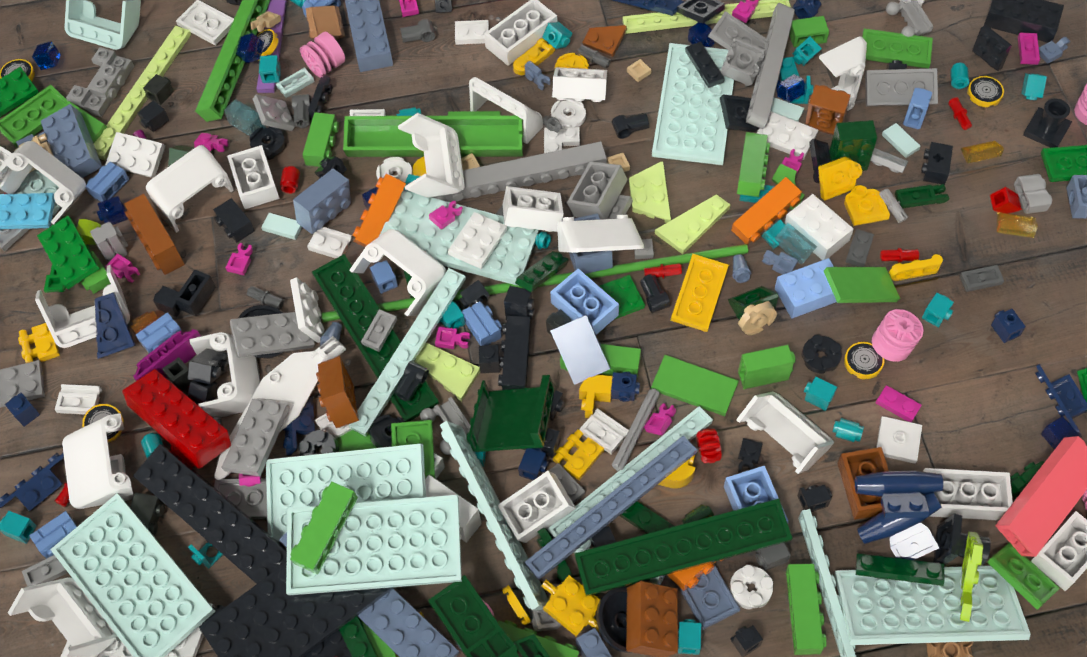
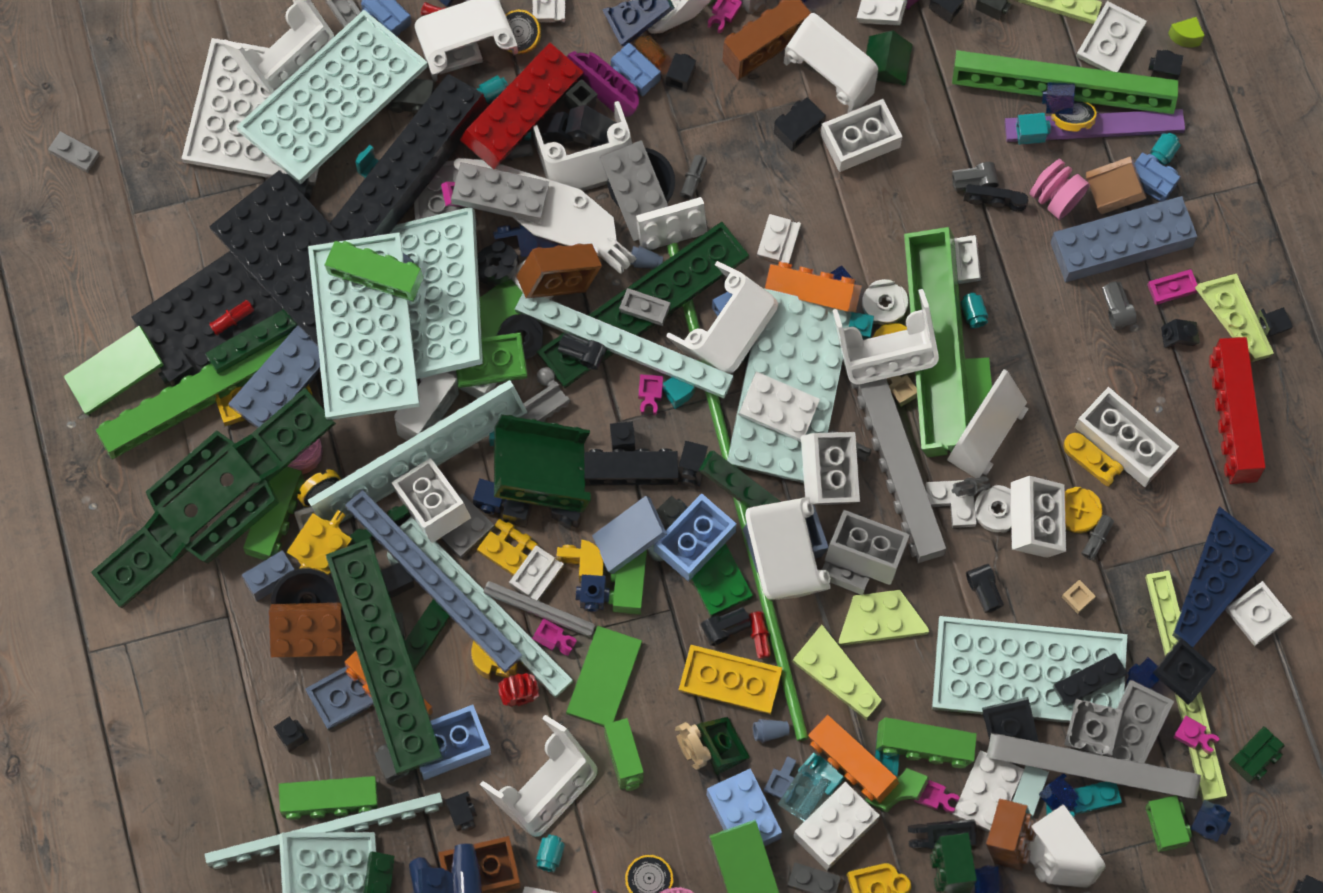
camera: 80 degrees right, 10 degrees up
(195, 293) = (690, 97): black brick -> none
(211, 141) = (917, 76): dark pink plate -> none
(239, 261) = (740, 140): dark pink plate -> none
(243, 117) = (953, 111): clear light blue brick -> none
(266, 20) = (1113, 111): tan plate -> none
(273, 112) = (962, 144): light grey plate -> none
(274, 147) = (917, 133): black plate -> none
(281, 226) = (798, 181): light aqua tile -> none
(290, 179) = (865, 179): red brick -> none
(296, 84) = (1016, 169): light aqua tile -> none
(320, 138) = (929, 207): bright green brick -> none
(322, 201) = (825, 220): sand blue brick -> none
(330, 163) = (879, 225): black brick -> none
(444, 216) = (811, 363): dark pink plate -> none
(450, 371) = (609, 394): yellowish green wing -> none
(470, 31) = (1129, 375): white plate -> none
(473, 294) = (707, 412): black brick -> none
(481, 324) = (670, 425): medium blue brick -> none
(535, 74) = (1059, 459): sand blue plate -> none
(542, 240) = (795, 489): teal plate -> none
(557, 35) = (1125, 485): teal brick -> none
(605, 38) = (1128, 549): dark orange wing -> none
(619, 159) = (920, 575): tan plate -> none
(645, 253) = (794, 612): light grey plate -> none
(689, 637) = (292, 673): teal brick -> none
(698, 513) = (431, 681): clear green brick -> none
(749, 453) = (518, 741): black plate -> none
(753, 599) = (357, 754): white plate -> none
(808, 47) = (1119, 814): teal brick -> none
(819, 393) = (597, 821): teal brick -> none
(821, 344) = (659, 840): black plate -> none
(838, 177) = (912, 851): yellow plate -> none

